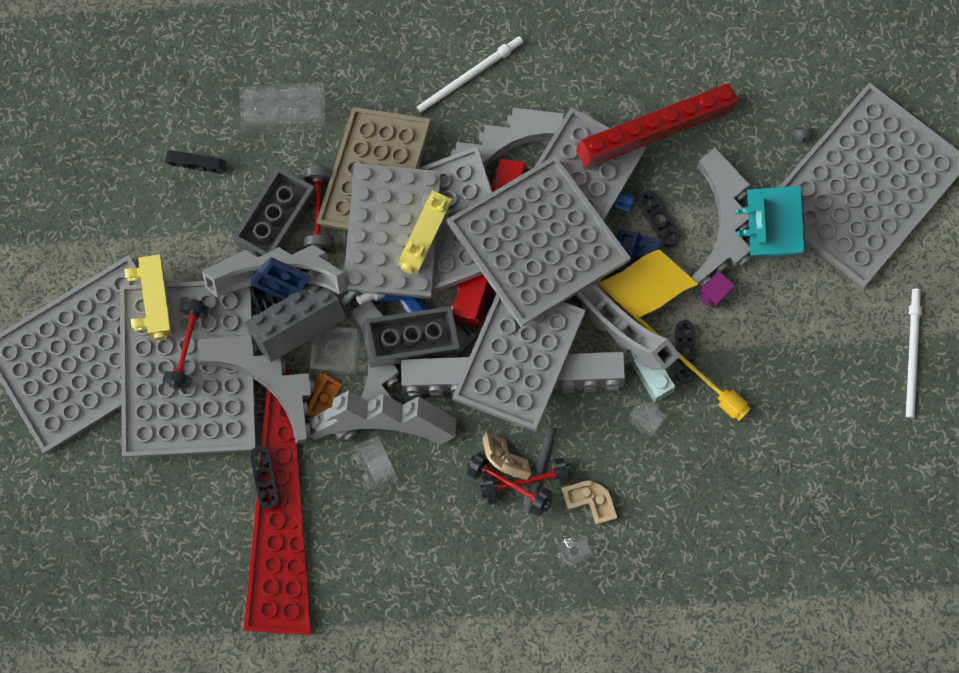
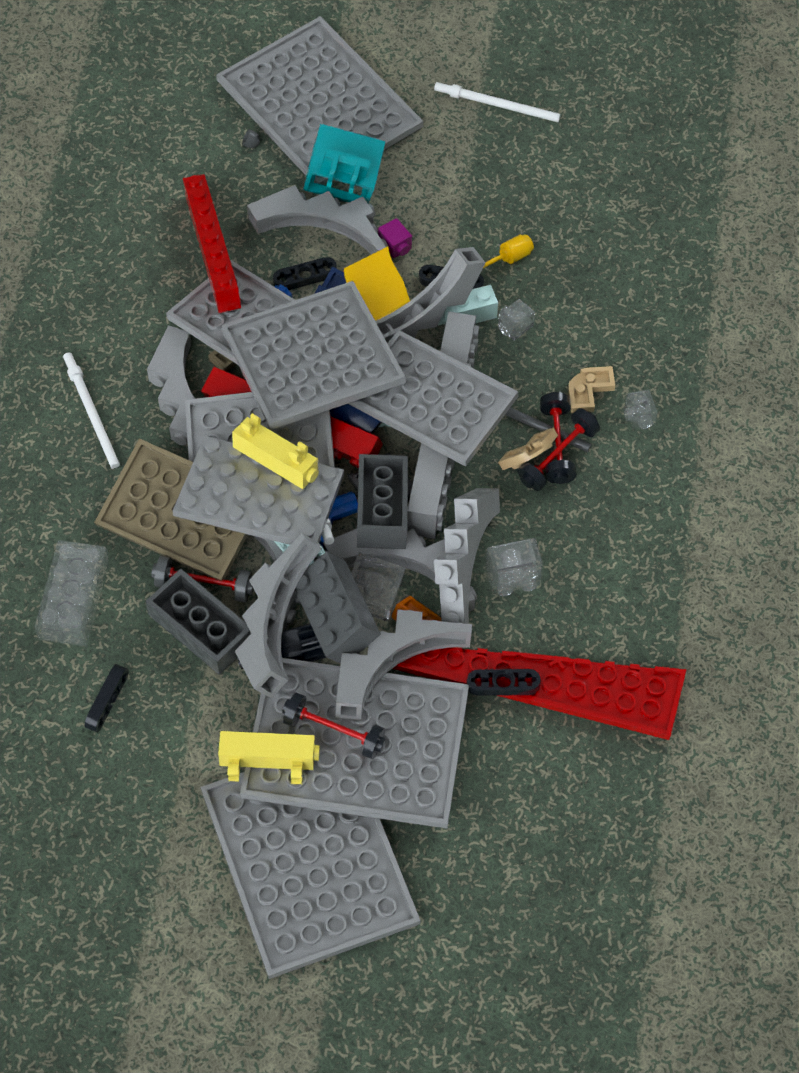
camera: 85 degrees left, 15 degrees down
(279, 278) = (284, 609): dark blue slope -> none

